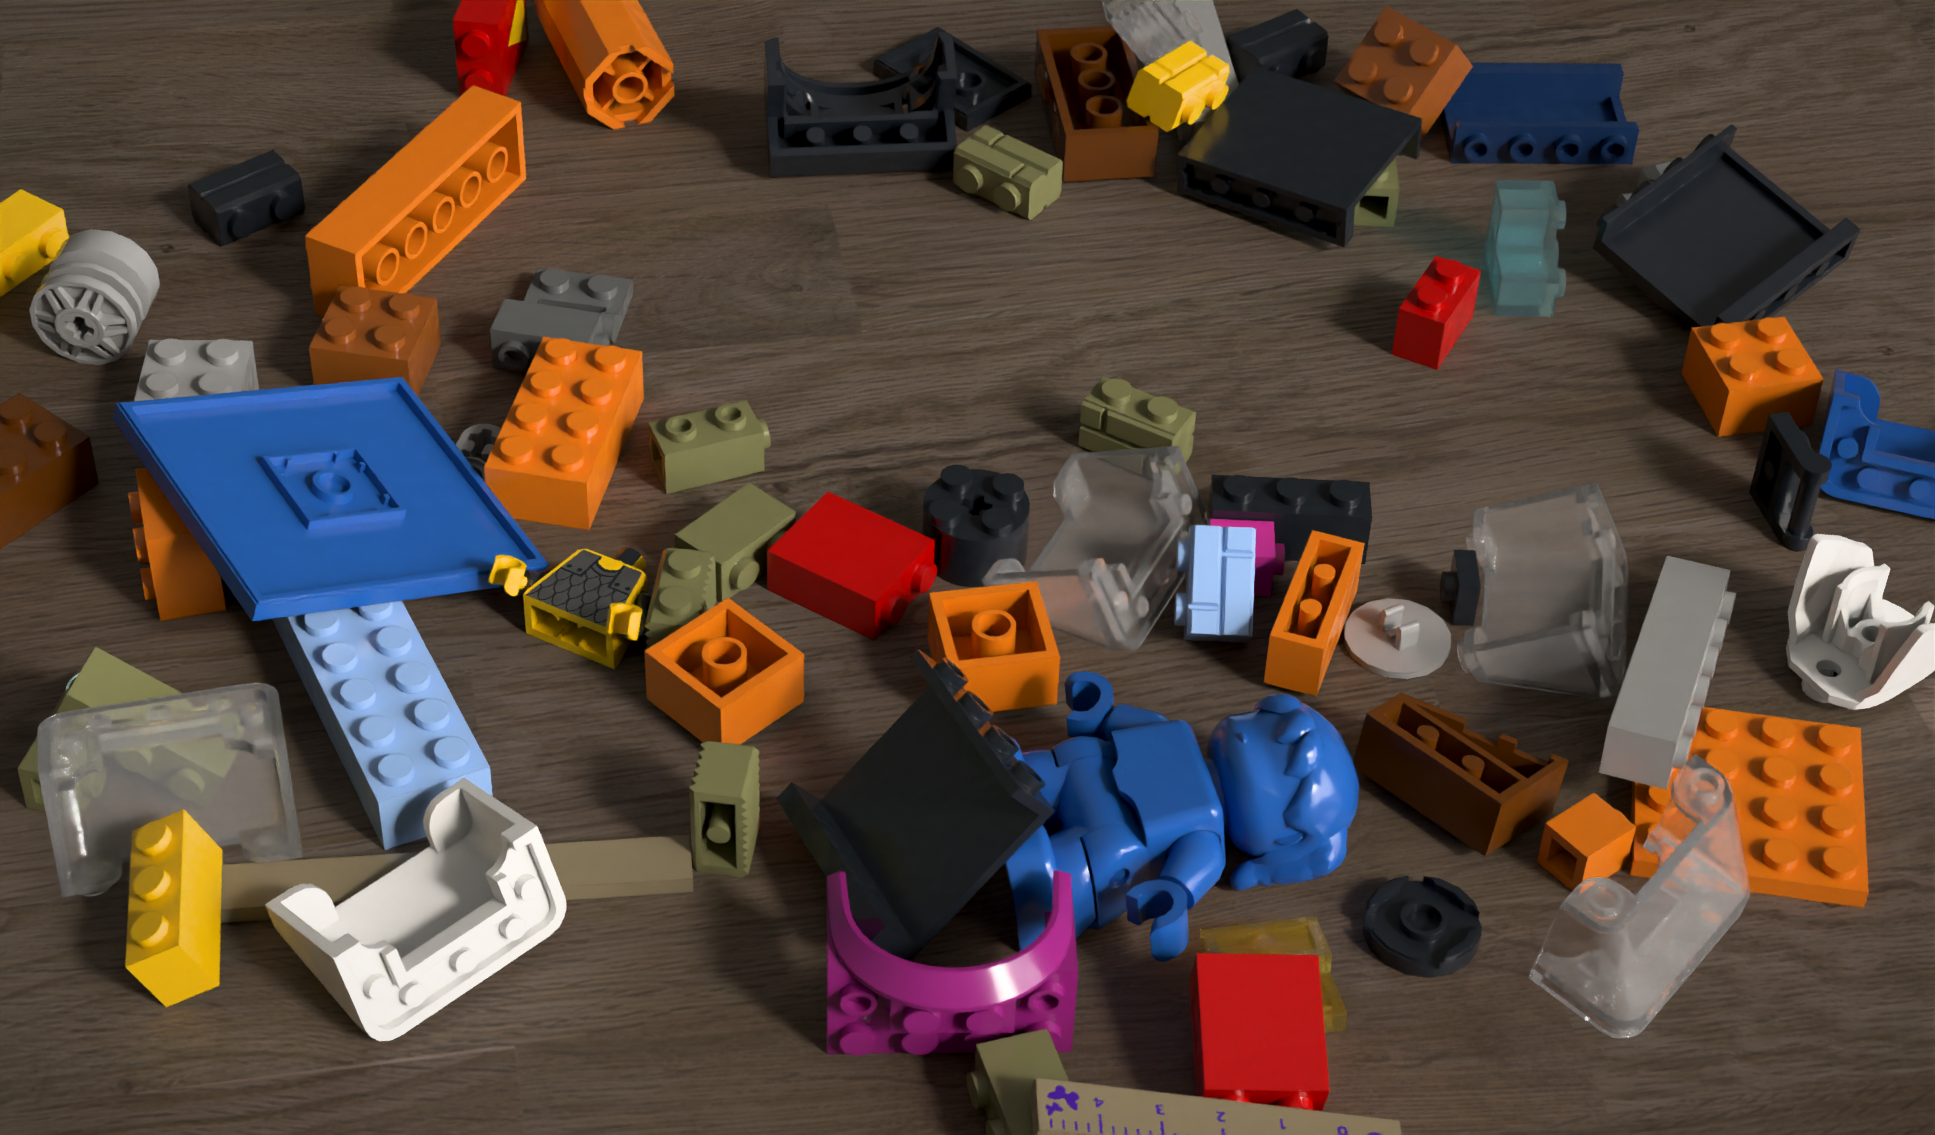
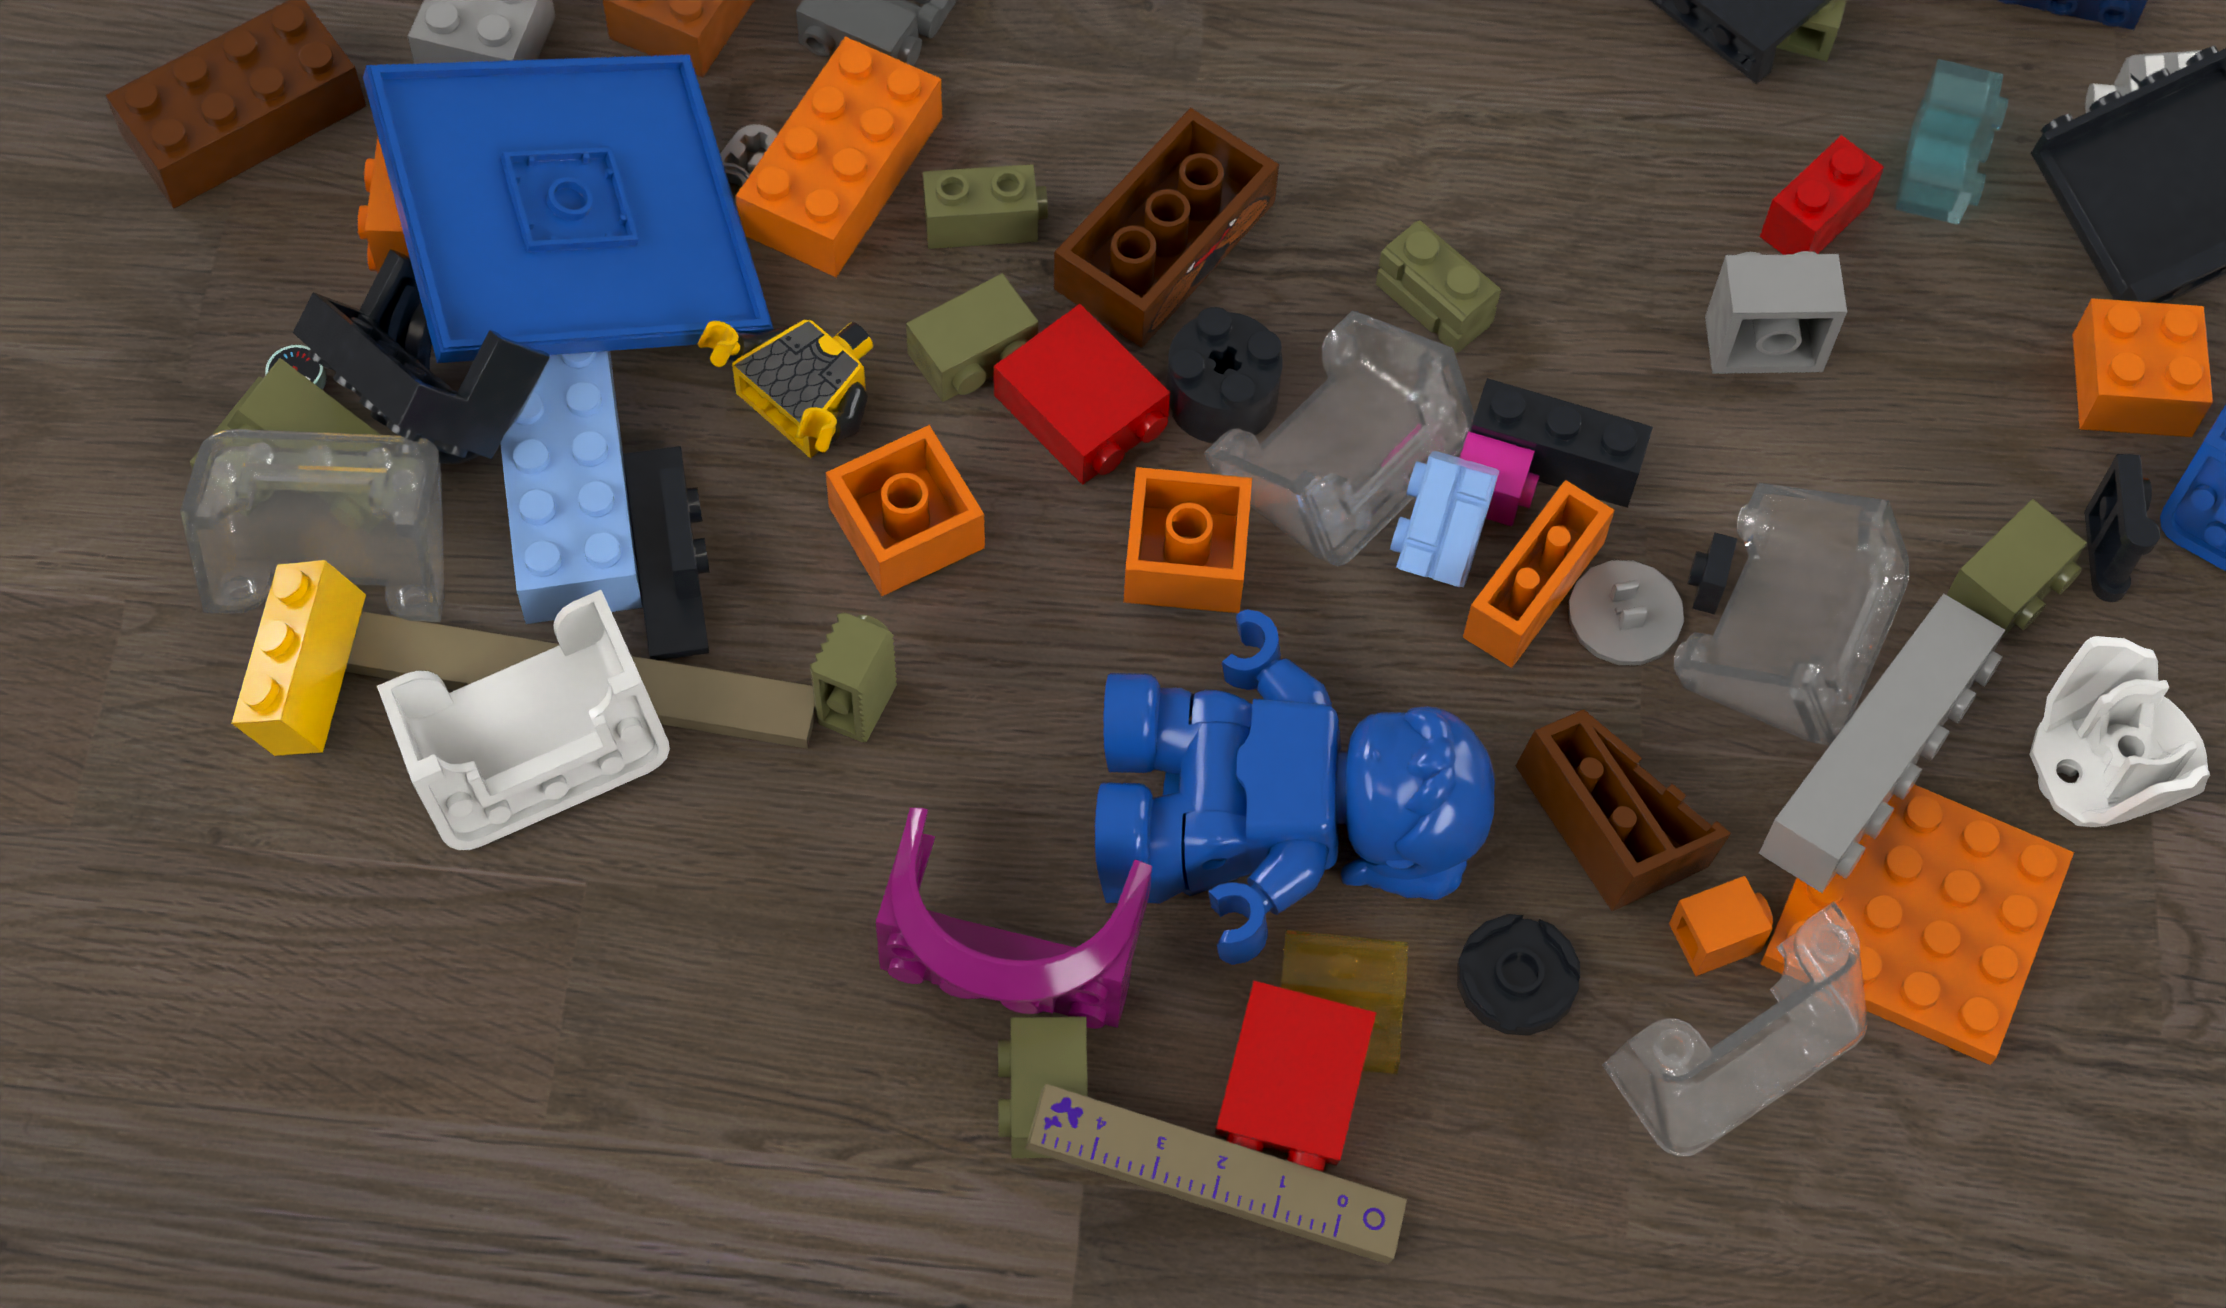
camera: 15 degrees right, 20 degrees up
(208, 648) = (386, 361): none -> black piece
(515, 751) = (667, 552): none -> black bracket
(681, 591) = (891, 402): olive brick -> none
(882, 424) = (1165, 227): none -> reddish brown brick
(923, 814) = (1031, 745): black panel -> none
(1435, 388) = (1775, 313): none -> light grey brick
(1722, 527) = (2019, 568): none -> olive brick

